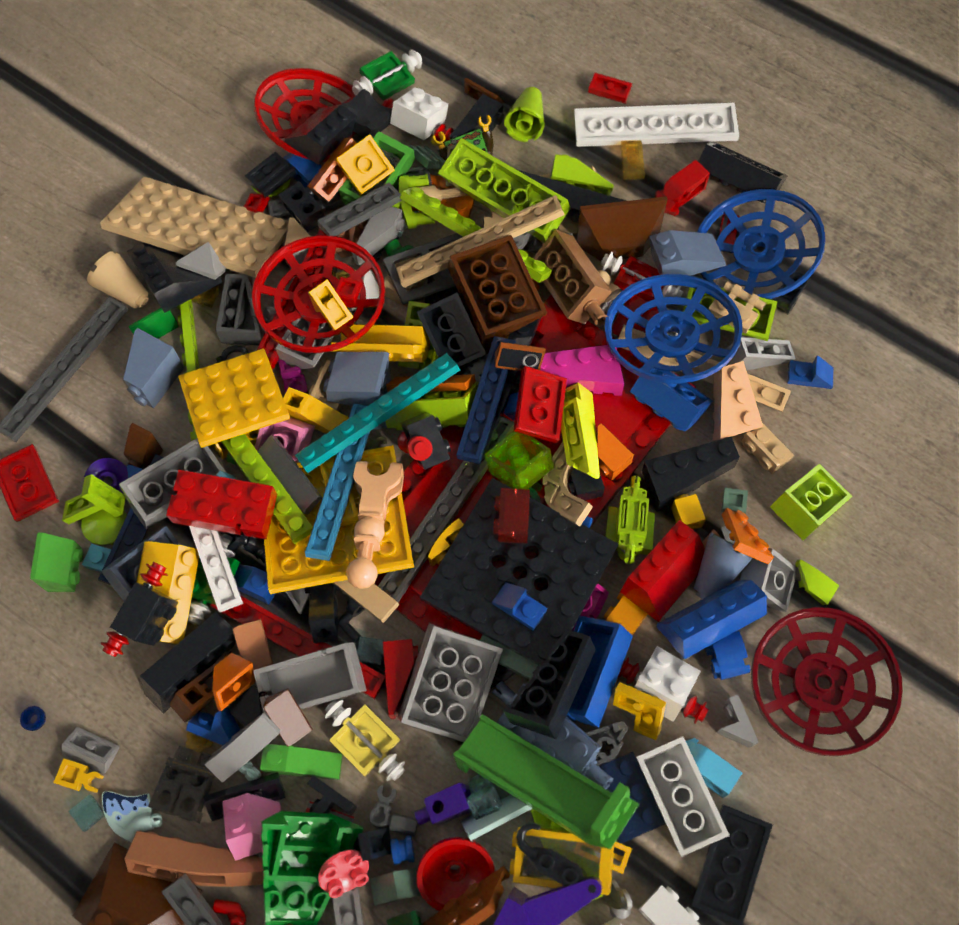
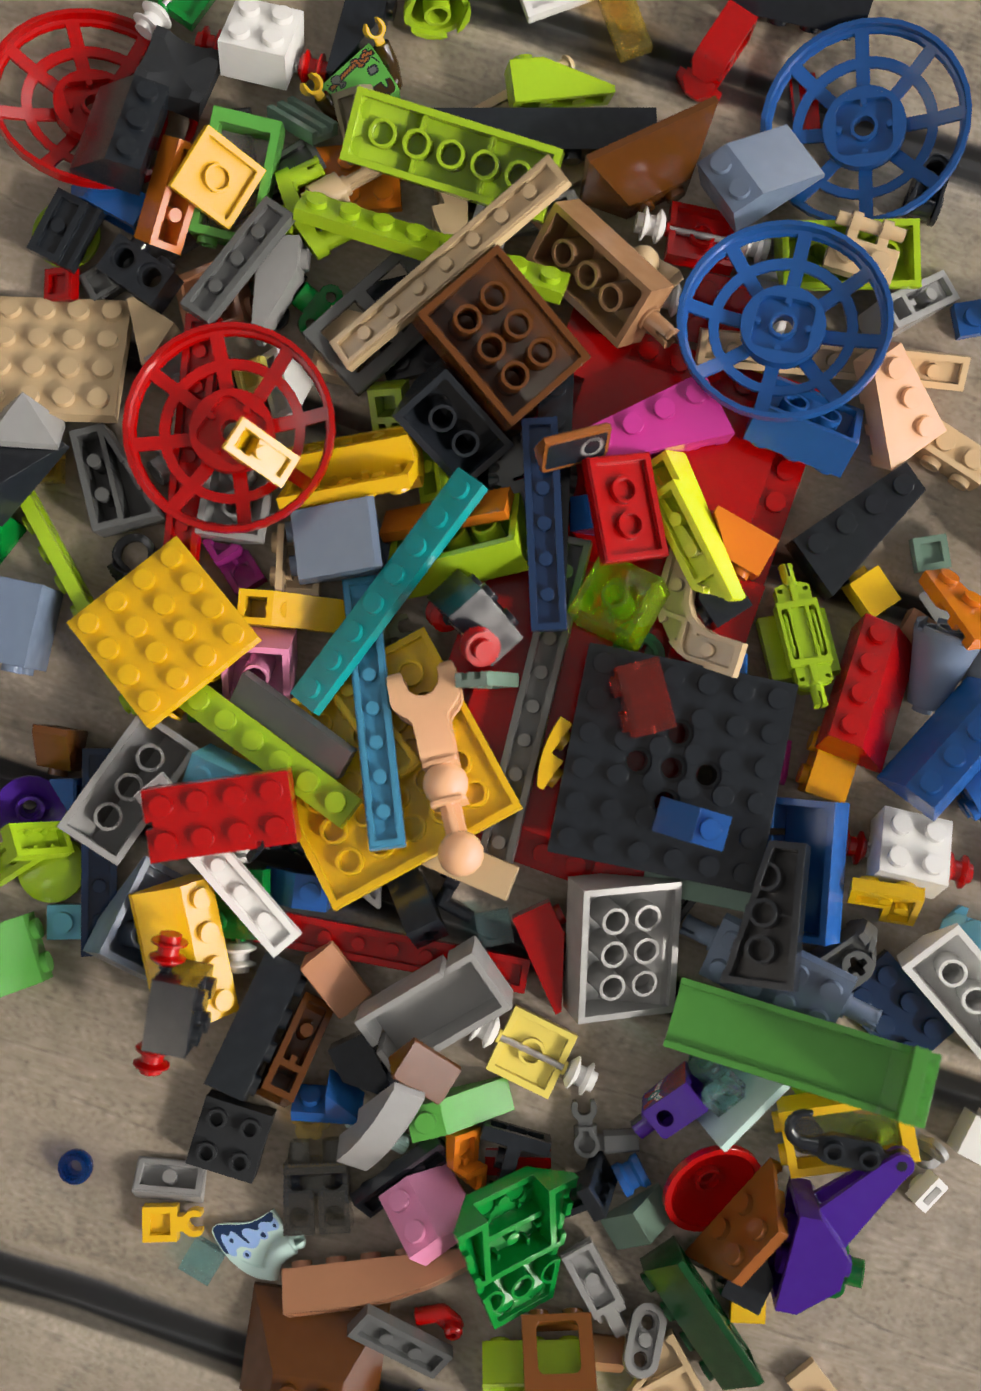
camera: 20 degrees left, 20 degrees up
(142, 731) = (230, 1136): none -> black brick
(231, 679) = (327, 1040): orange slope -> none
(293, 793) = (463, 1154): none -> orange slope
(343, 873) = (570, 1238): coral dish -> none
(348, 289) = (274, 412): red tile -> none
(419, 481) = (486, 680): none -> sand green tile

